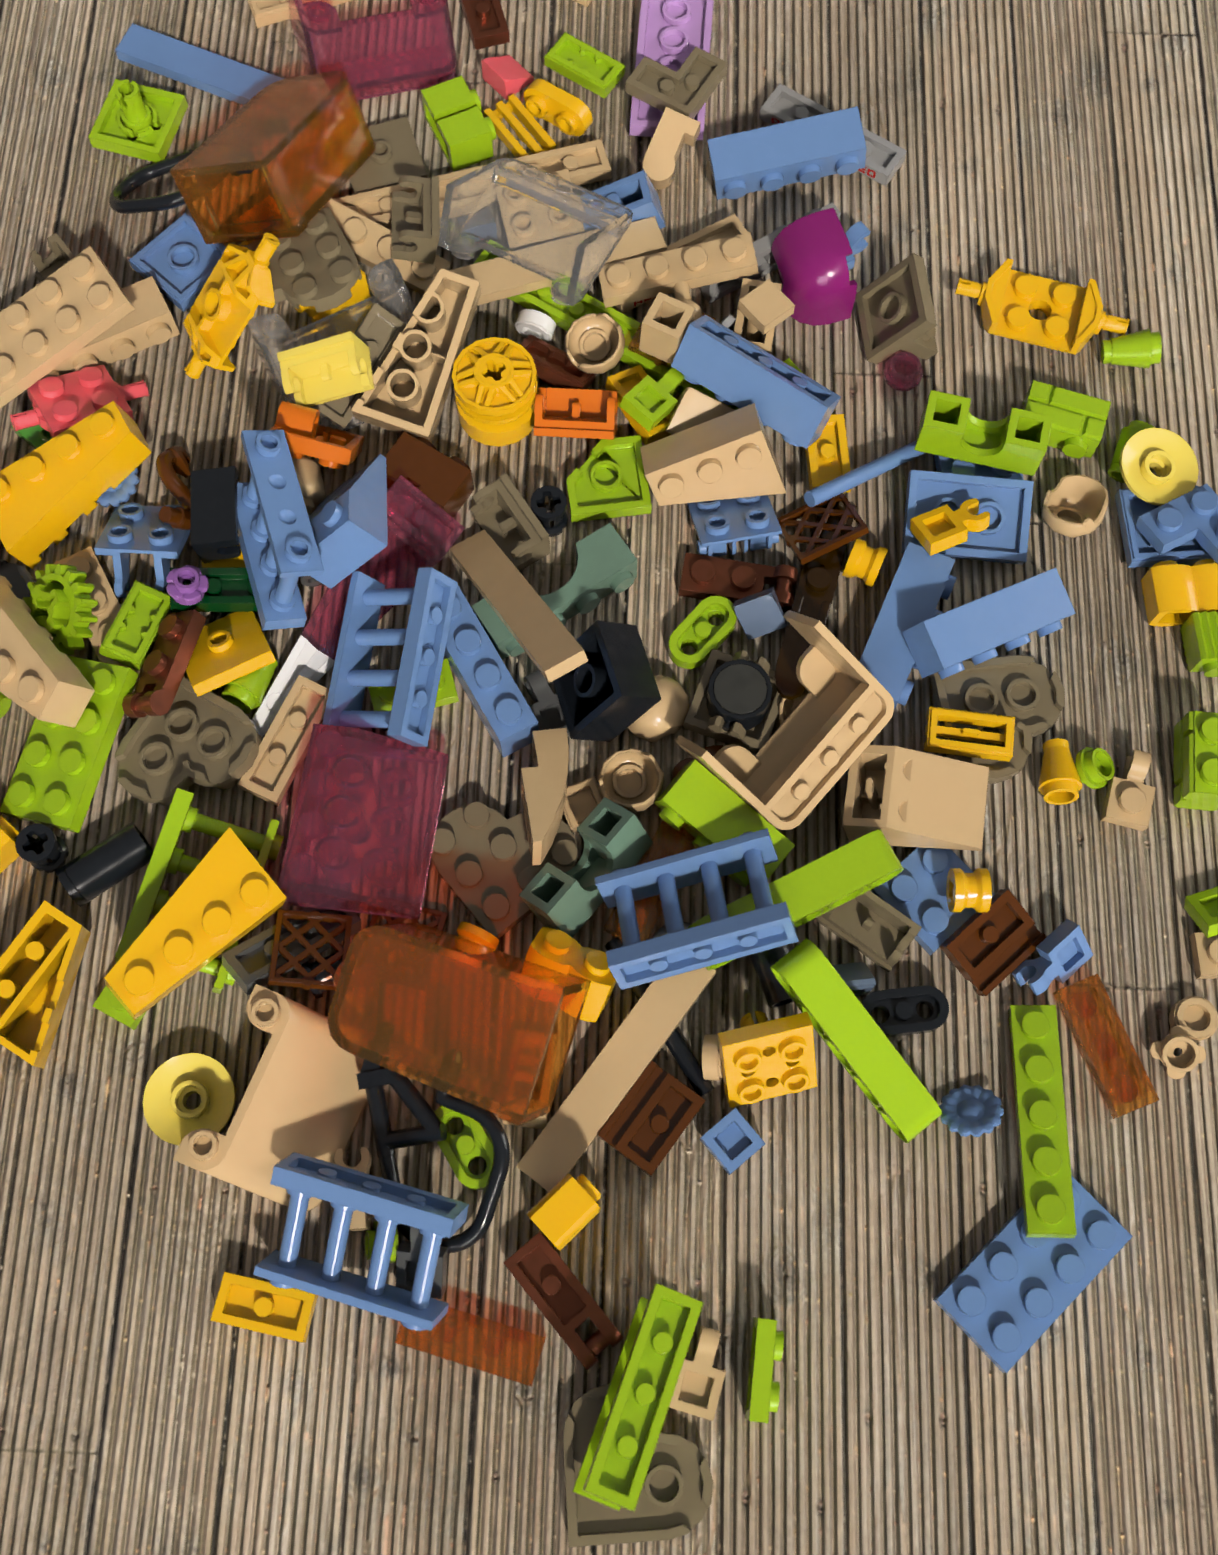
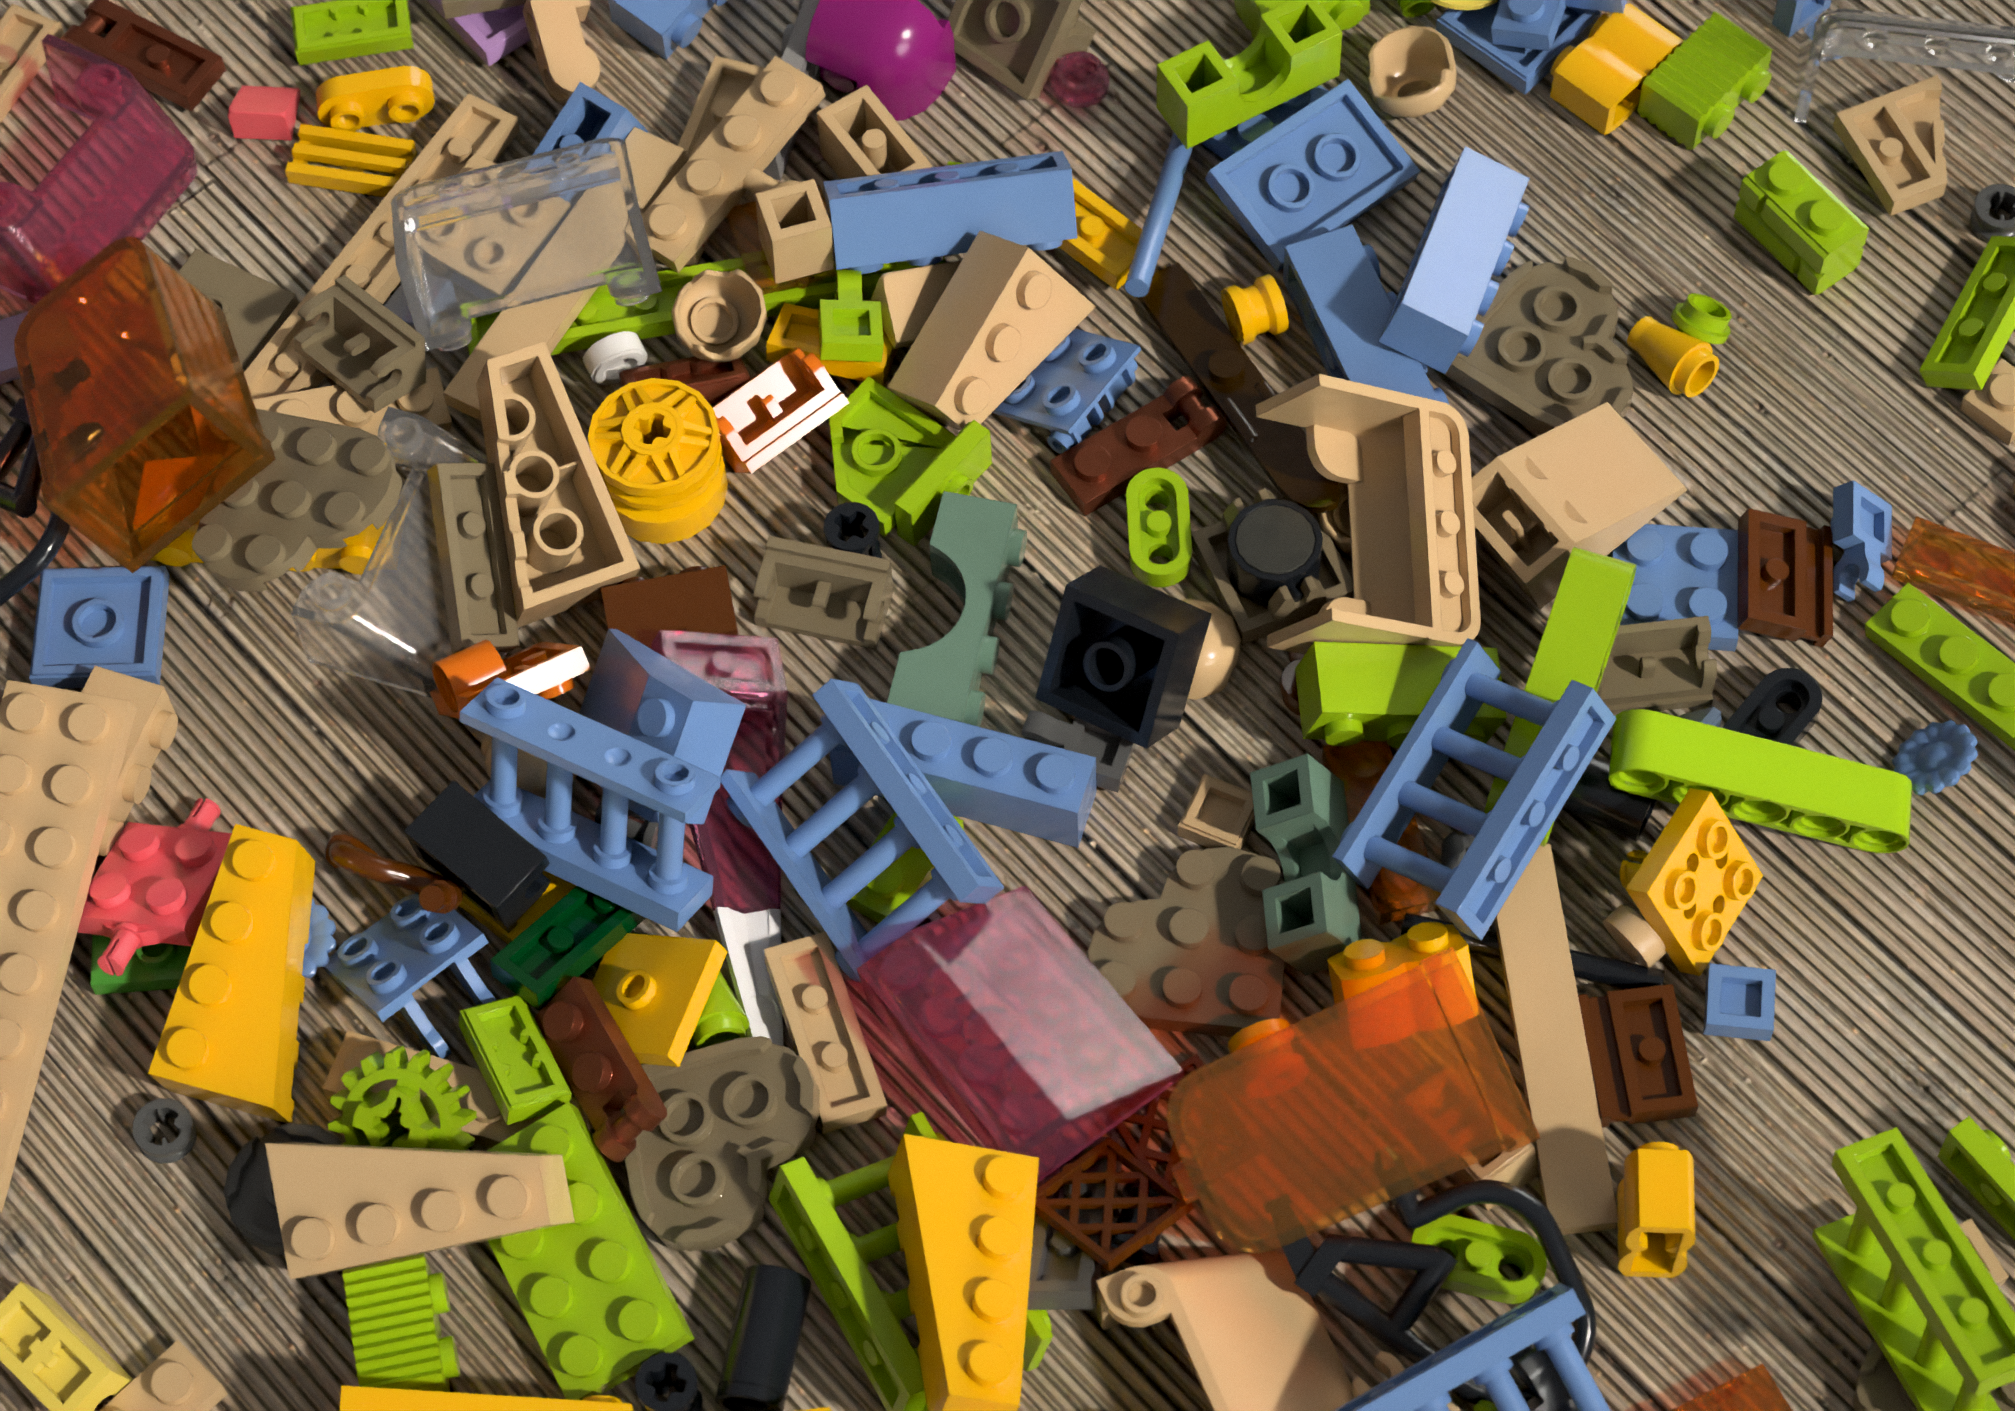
camera: 40 degrees left, 10 degrees down
(187, 594) = (540, 968): medium lavender plate -> none
(228, 303) = (274, 572): yellow plate -> none
(326, 369) = (457, 584): light yellow hinge -> none
(458, 123) = (271, 209): lime piece -> none
(519, 606) = (952, 648): tan tile -> none
(545, 790) = (1177, 822): tan slope -> none
(562, 1298) = (1739, 1311): copper plate -> none
(625, 517) = (950, 471): none -> lime plate
(631, 779) = (1251, 735): tan hair -> none
(729, 322) = (855, 169): light grey hinge -> none
(760, 613) = (1202, 453): sand blue slope -> none
(766, 306) = (880, 120): tan tile -> none
(827, 545) = (1201, 321): reddish brown window -> none
(946, 528) = (1310, 201): yellow plate -> none
(968, 749) = (1512, 417): yellow tile -> none
(969, 890) = (1714, 539): yellow wheel -> none
(1127, 798) = (1763, 324): tan plate -> none

